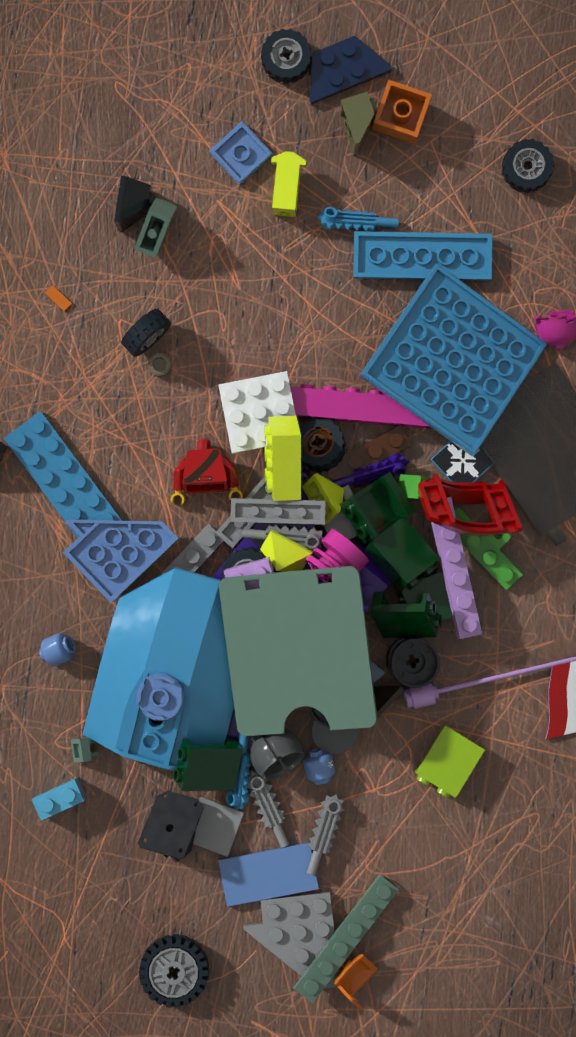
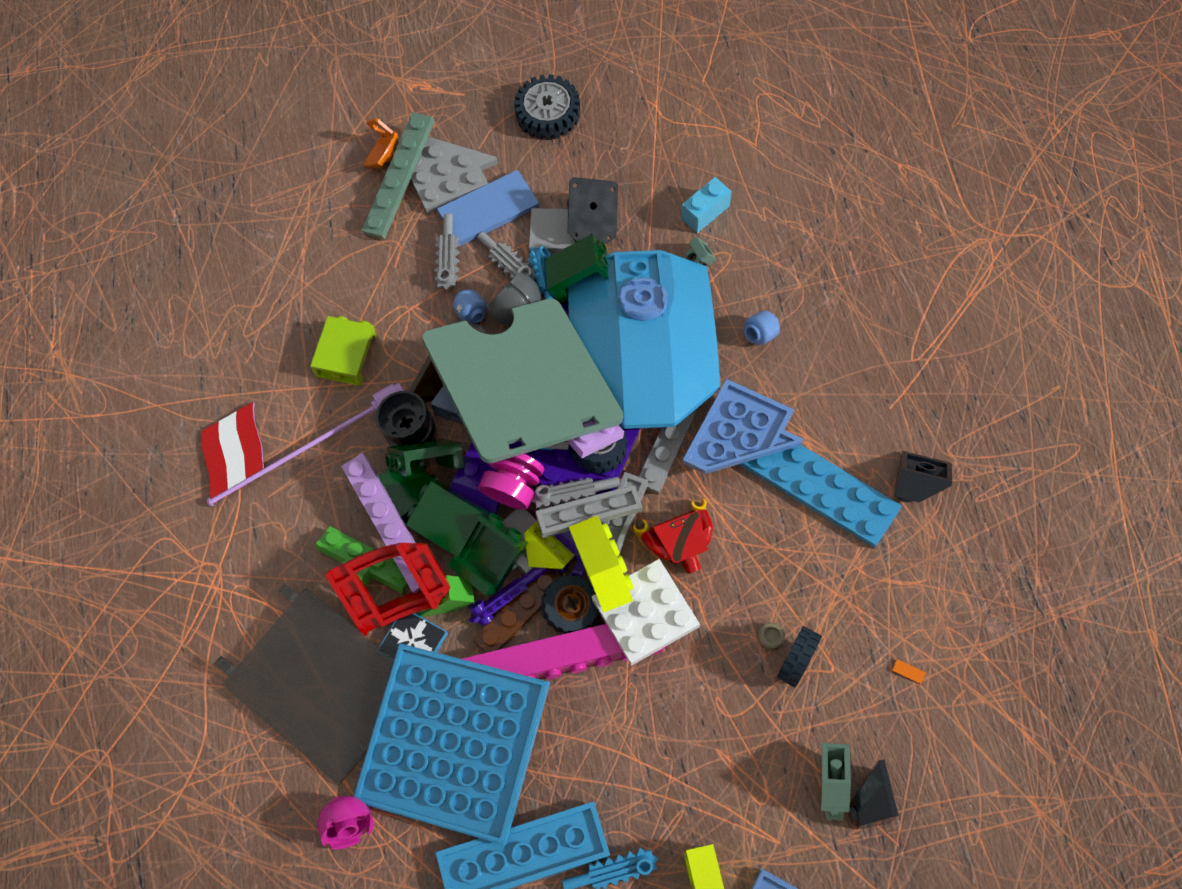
camera: 165 degrees right, 20 degrees down
(284, 553) = (568, 471): neon yellow slope -> none

